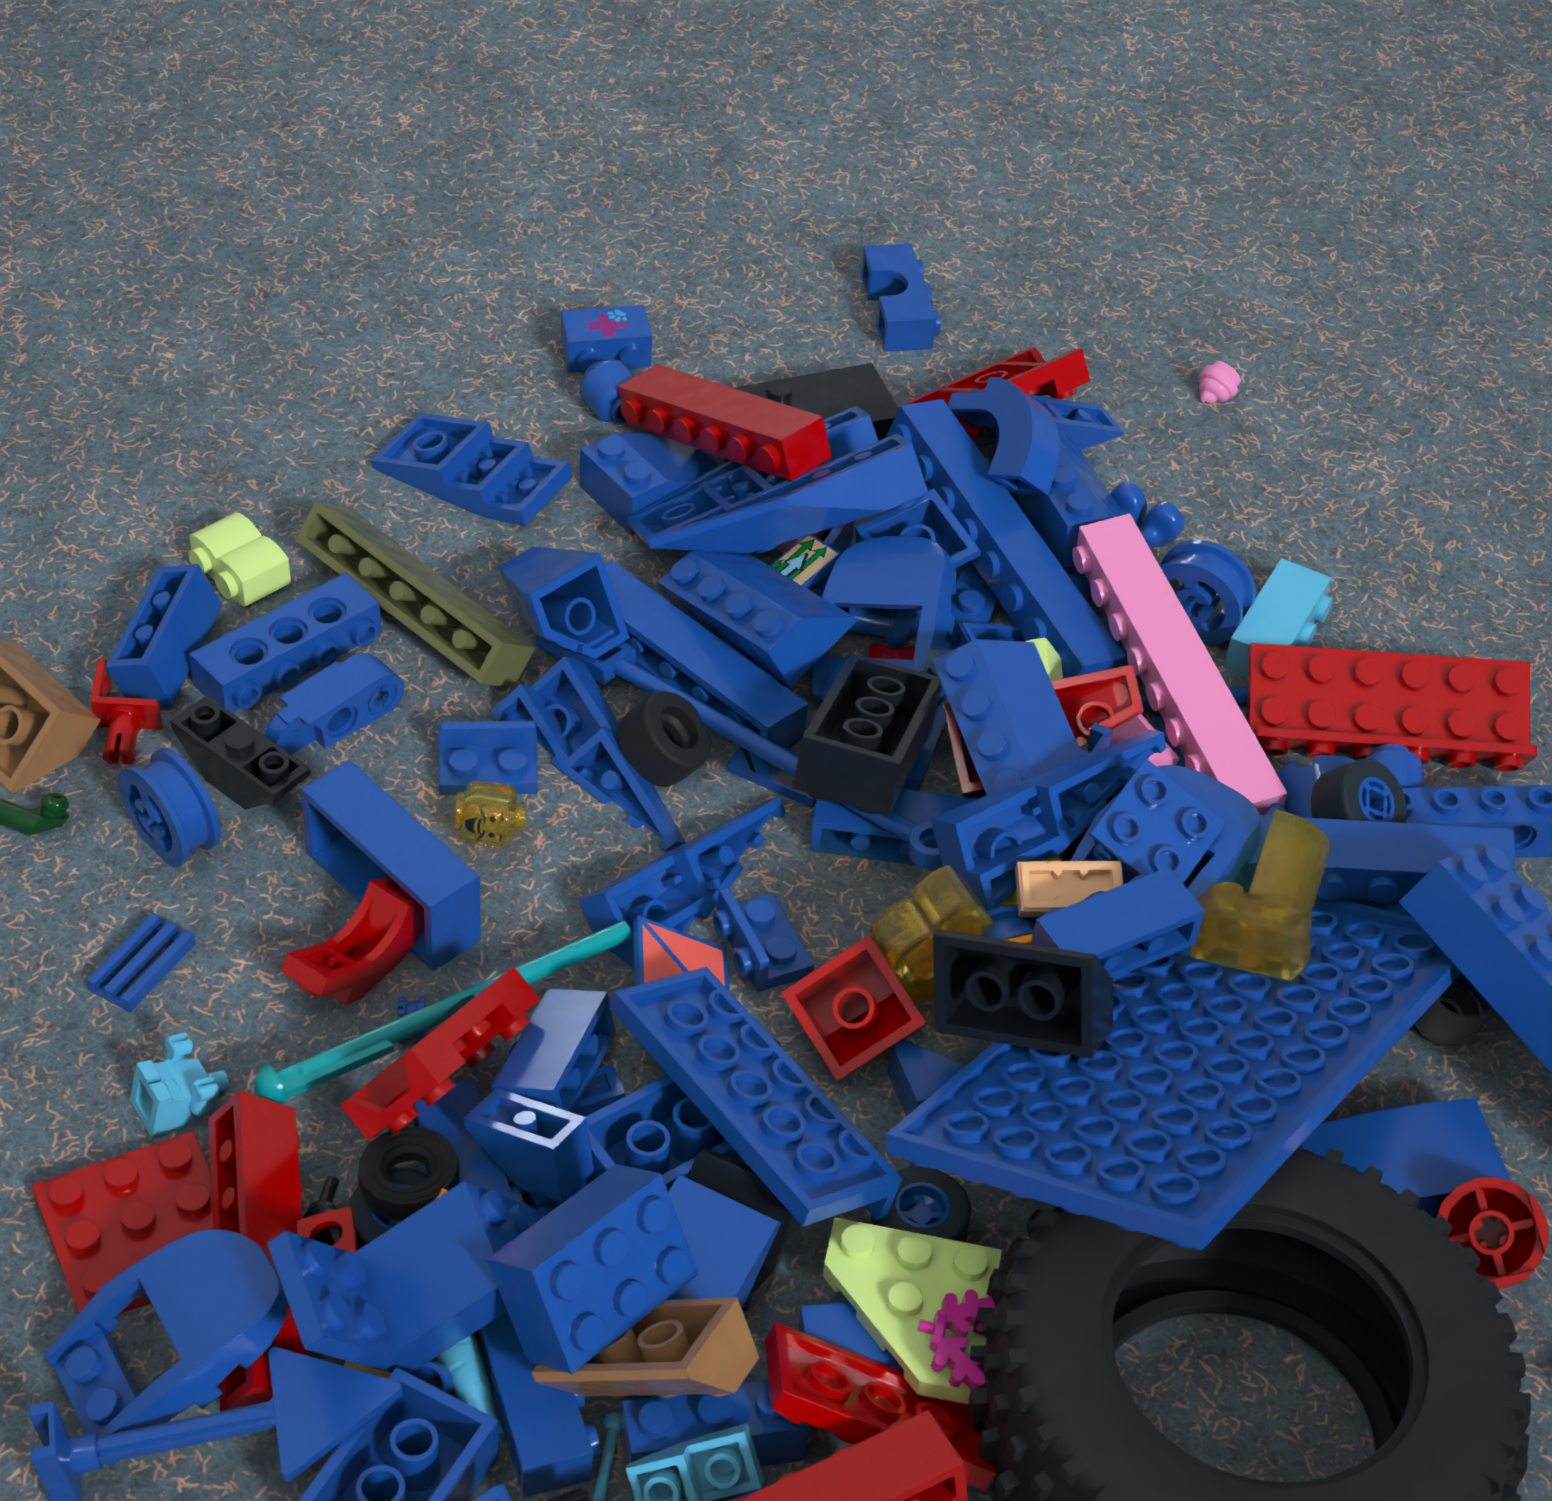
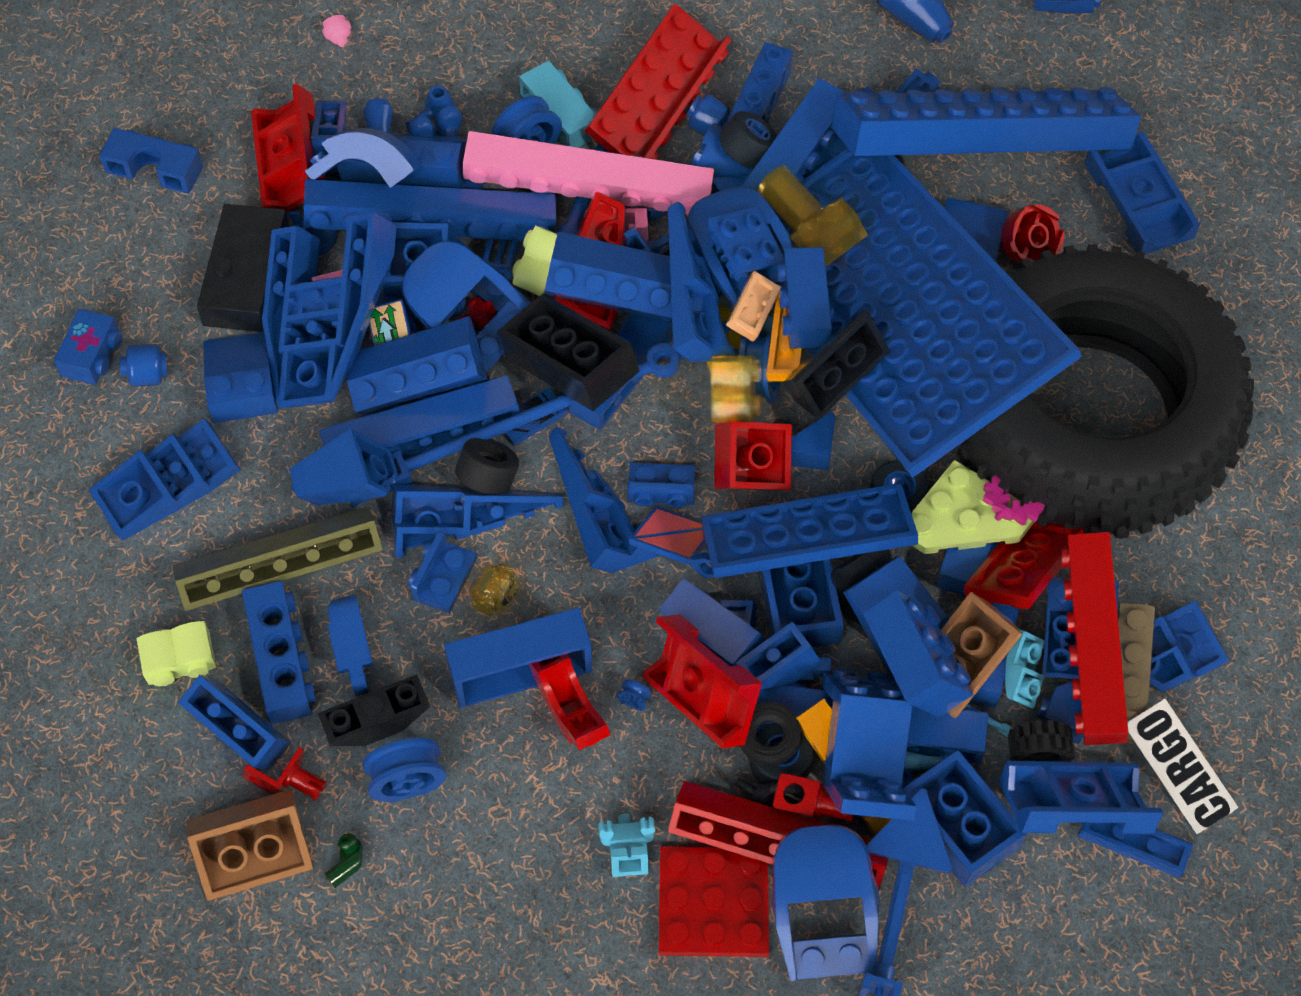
camera: 60 degrees left, 15 degrees up
(131, 950) = (490, 810): blue tile -> none
(380, 1041) = (666, 780): teal bar -> none
(725, 421) = (249, 310): red brick -> none
(1120, 462) = (378, 114): none -> blue cone
(1194, 507) = (436, 100): none -> blue bar

